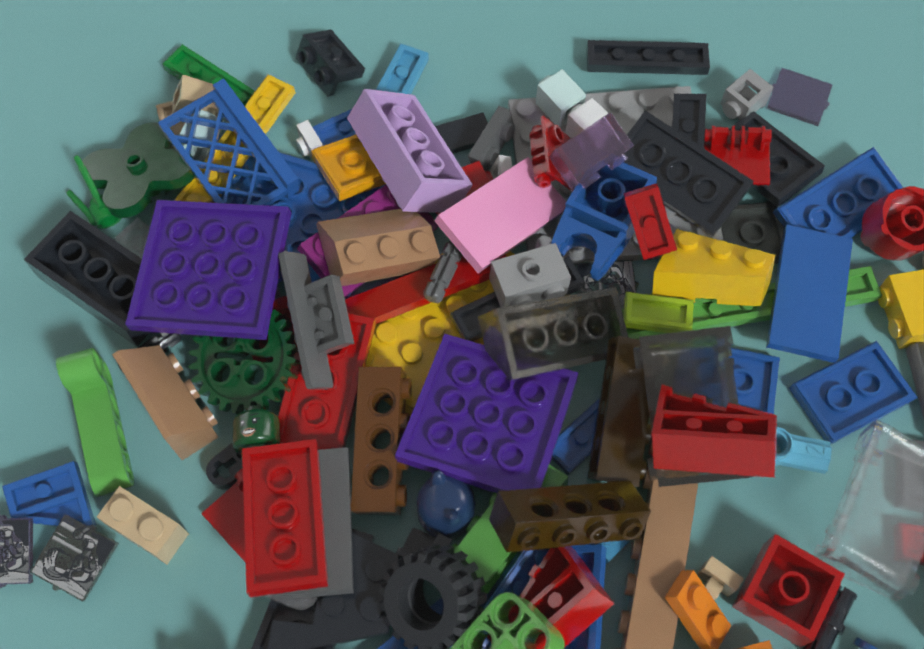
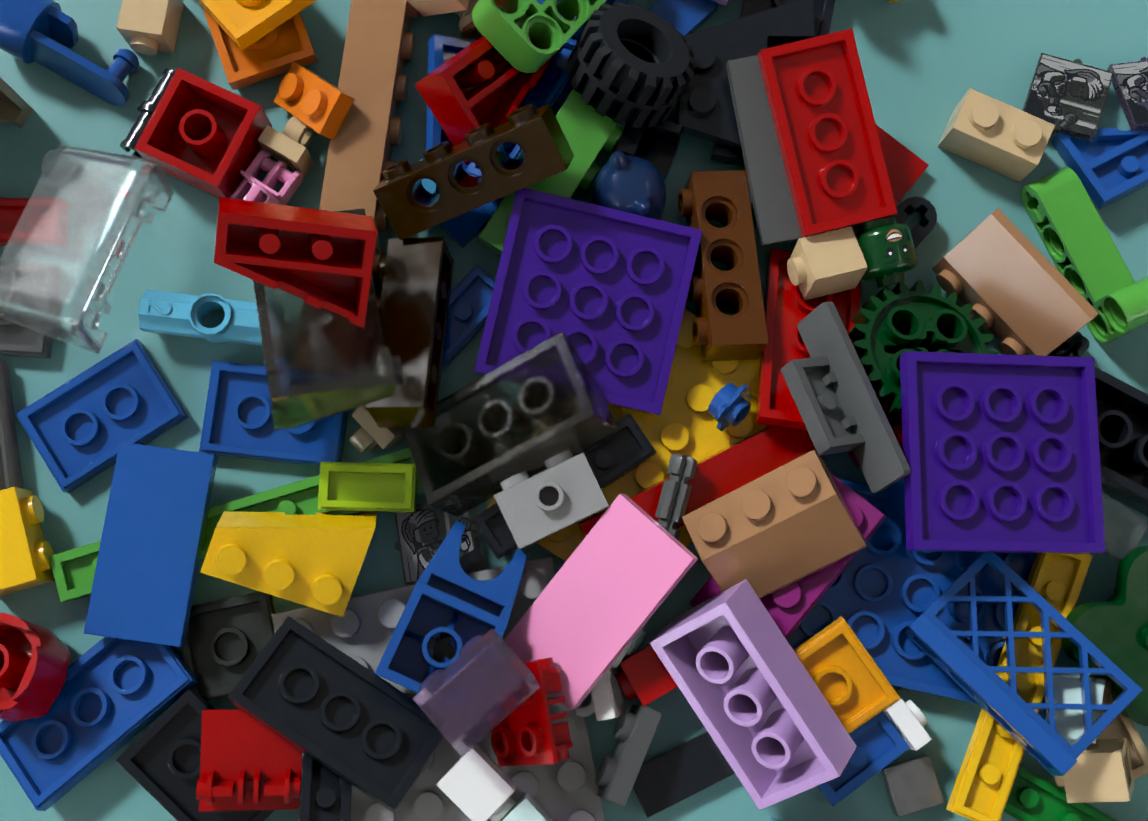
camera: 170 degrees right, 15 degrees up
(303, 424) = (826, 263): none -> tan brick
(312, 109) = (912, 785): none -> flat silver tile
(392, 335) = (730, 405): none -> blue plate
(650, 221) = (383, 593): red plate -> none
(738, 543) = (254, 190): none -> bright pink arm

